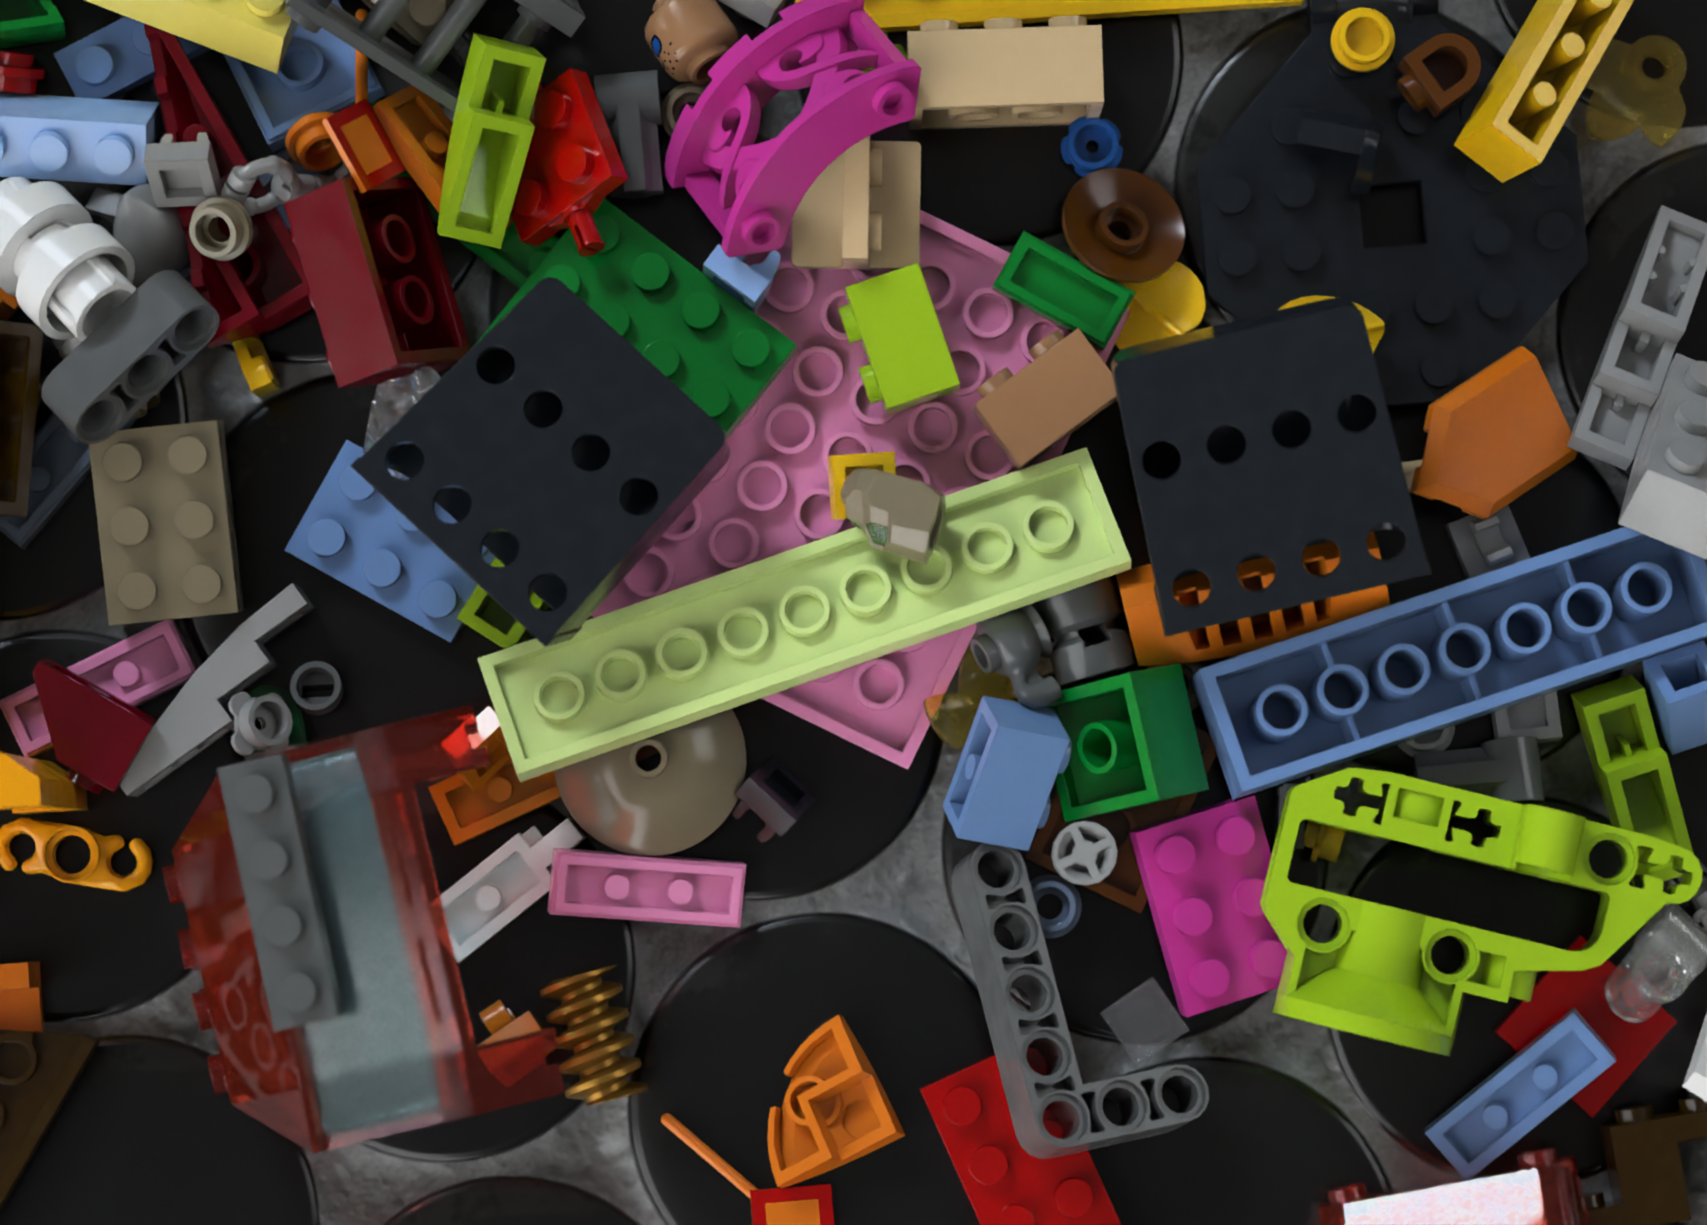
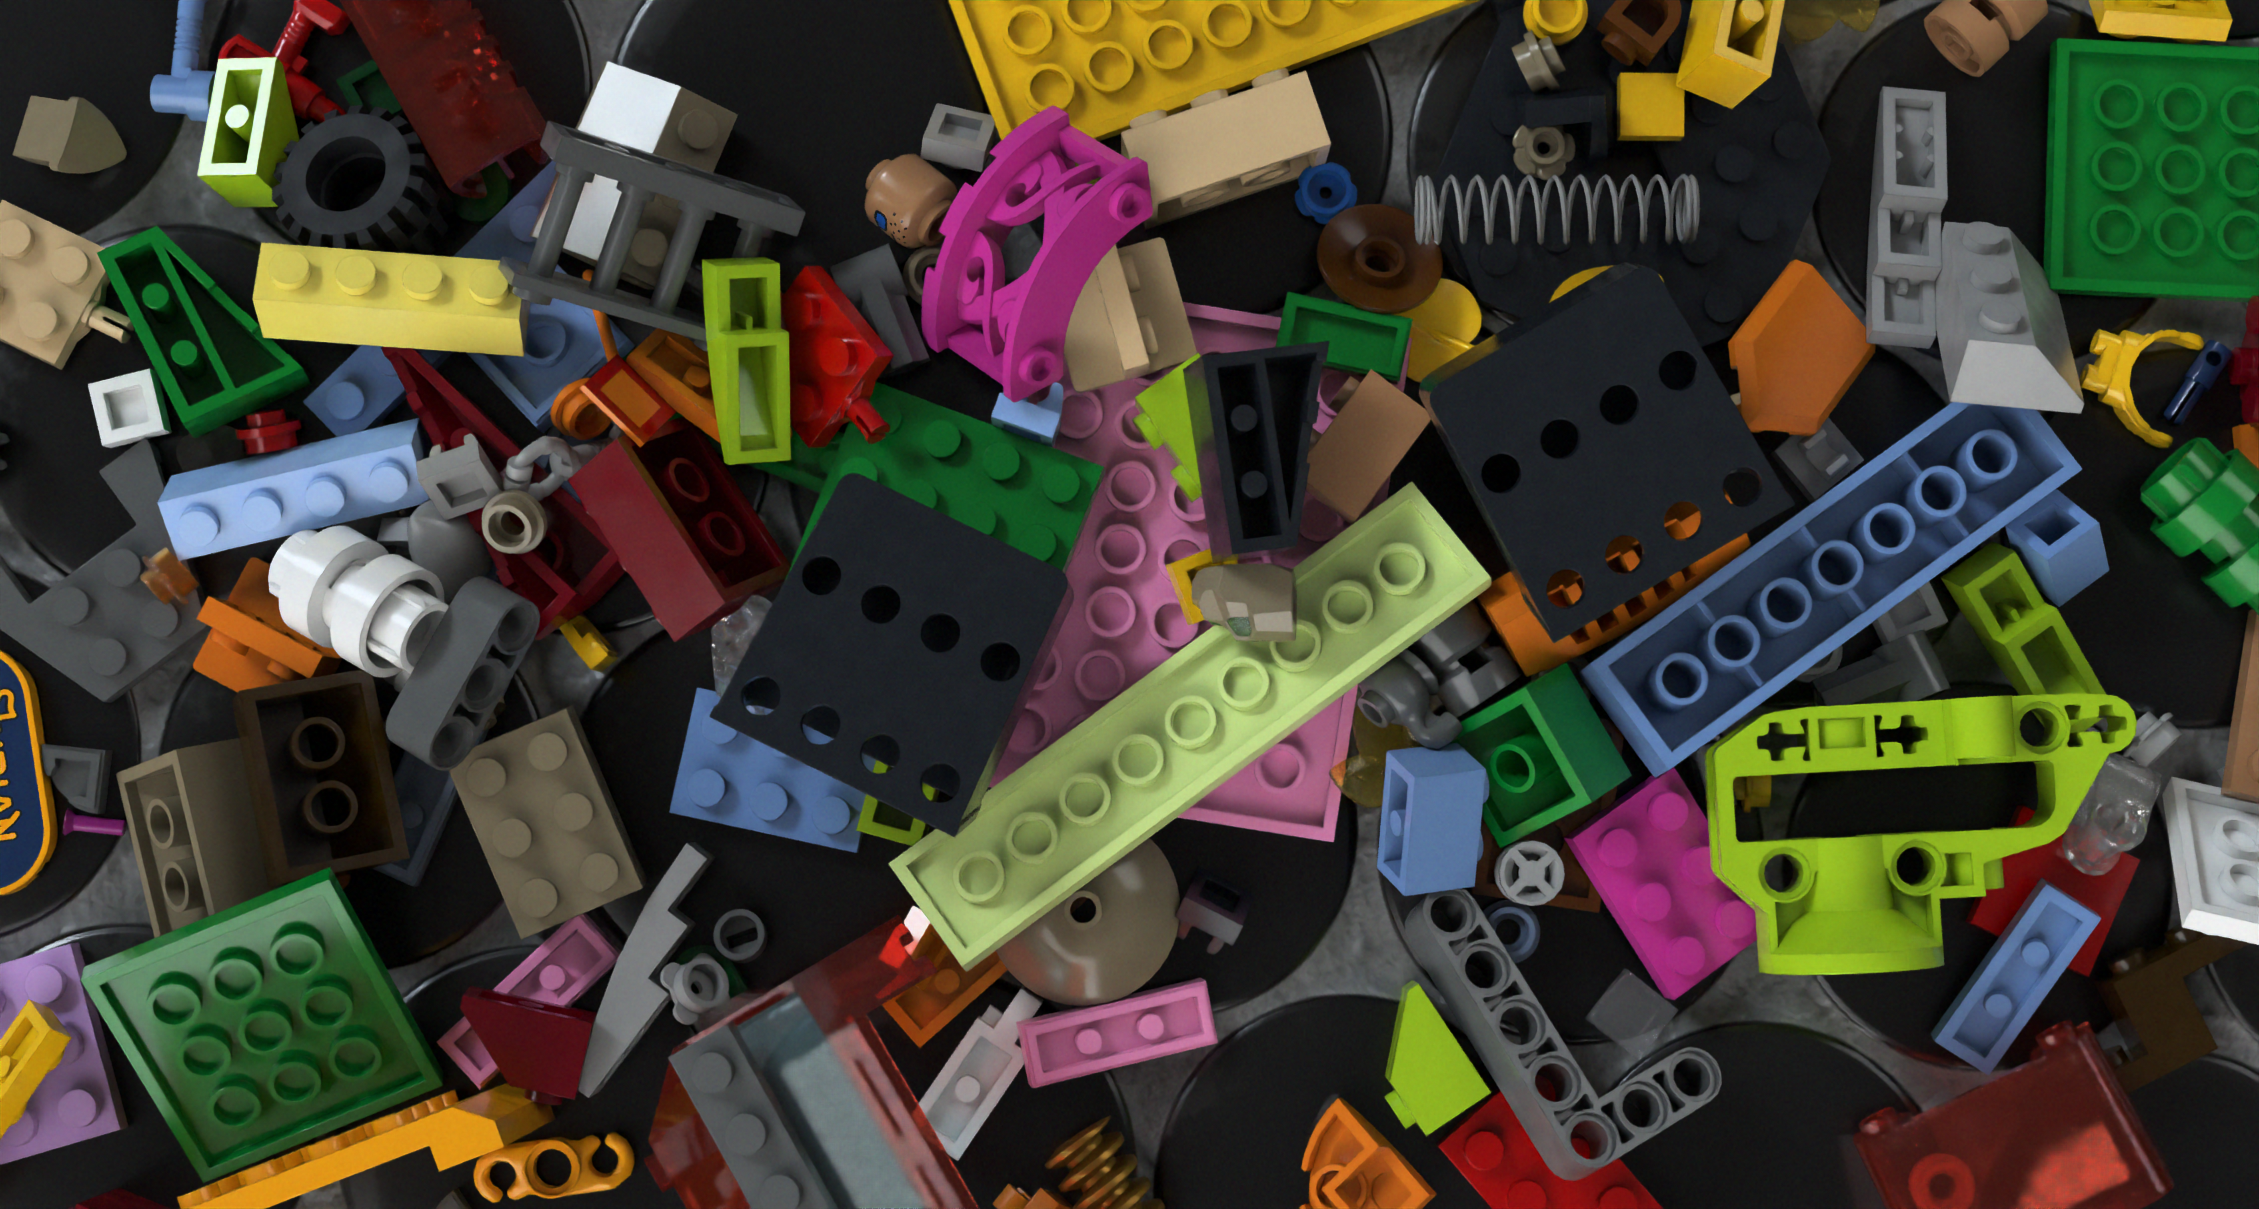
camera: 20 degrees left, 0 degrees up
(933, 1010) = (1428, 1066): none -> lime slope
(940, 363) = (1252, 444): none -> black wedge
(1308, 184) = (1539, 165): none -> dark tan plate
(1331, 83) = (1539, 62): none -> dark tan plate
(1425, 158) = (1649, 107): none -> yellow tile
(1432, 245) = (1684, 192): none -> light grey piece

